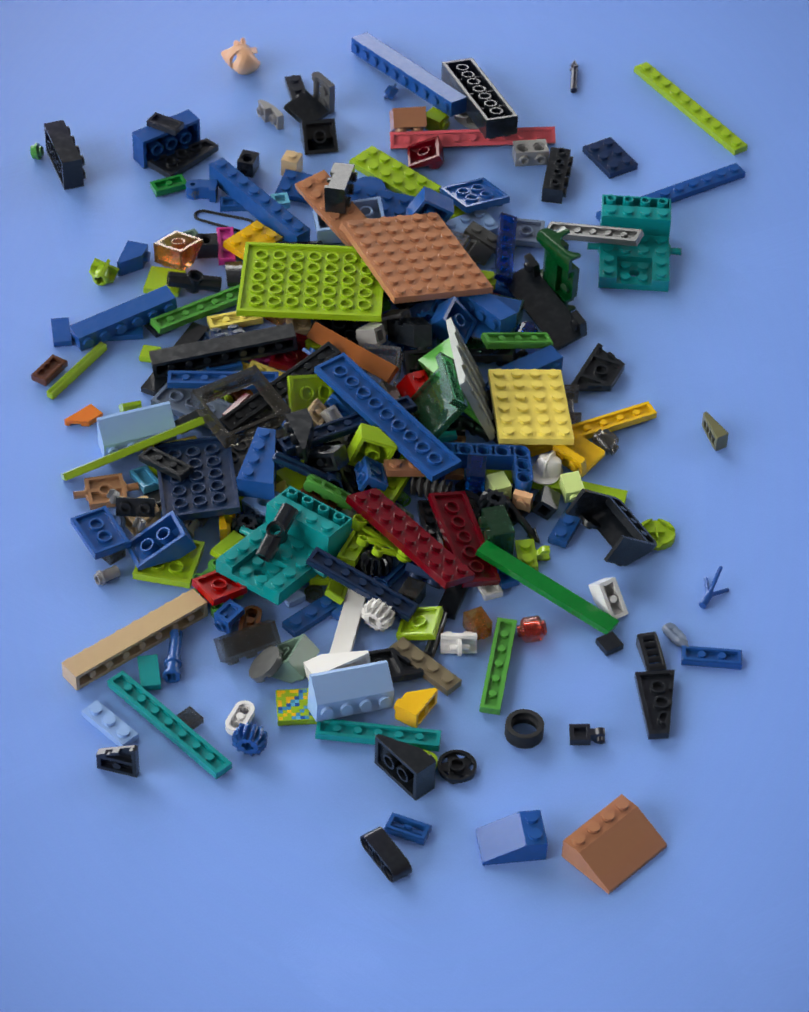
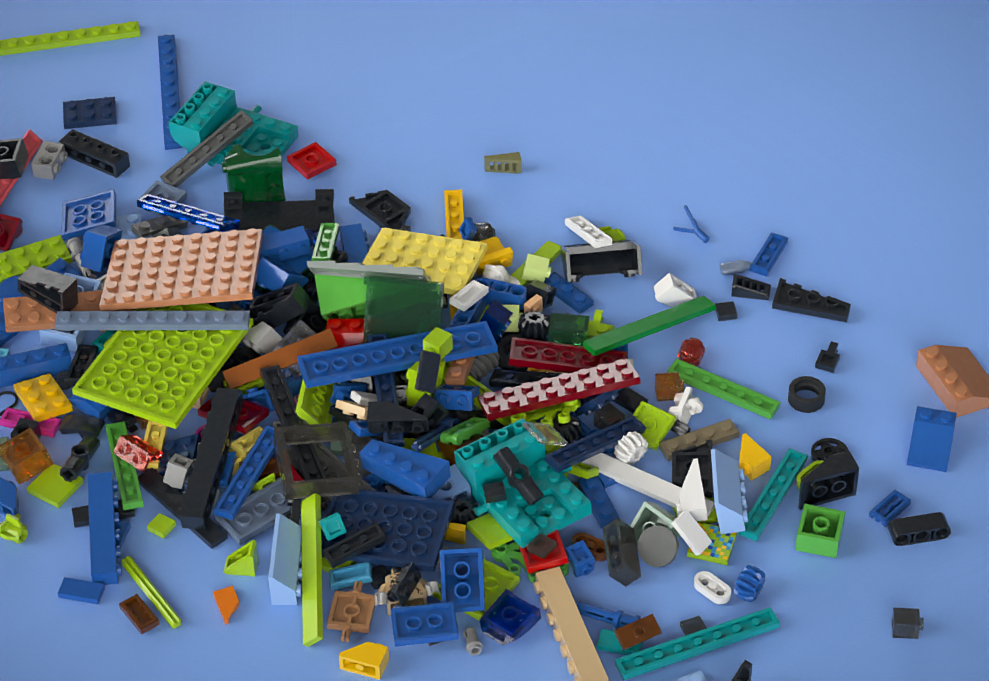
camera: 65 degrees left, 0 degrees up
(57, 515) = (365, 659): none -> yellow slope
(139, 588) = (509, 618): none -> clear blue slope
(157, 675) = (637, 632): none -> reddish brown plate
(176, 441) = (332, 526): none -> teal tile
(201, 332) = (178, 471): none -> light grey brick
(212, 307) = (136, 451): none -> clear red bracket
(219, 580) = (541, 546): none -> clear smoke tile
(258, 527) = (494, 492): none -> black tile
(258, 868) = (906, 623): none -> clear smoke brick
(287, 679) = (691, 532): none -> white tile
(337, 536) = (544, 433): none -> clear piece
(341, 775) = (820, 530): none -> bright green brick
(345, 260) = (152, 320): none -> sand blue plate
(357, 430) = (427, 372): none -> black slope
(401, 432) = (438, 342): none -> lime brick
(495, 444) = (468, 295): none -> white tile
(593, 428) = (468, 229): none -> blue tile
(635, 306) = (311, 160): none -> red plate
(647, 511) = (588, 231): none -> white tile

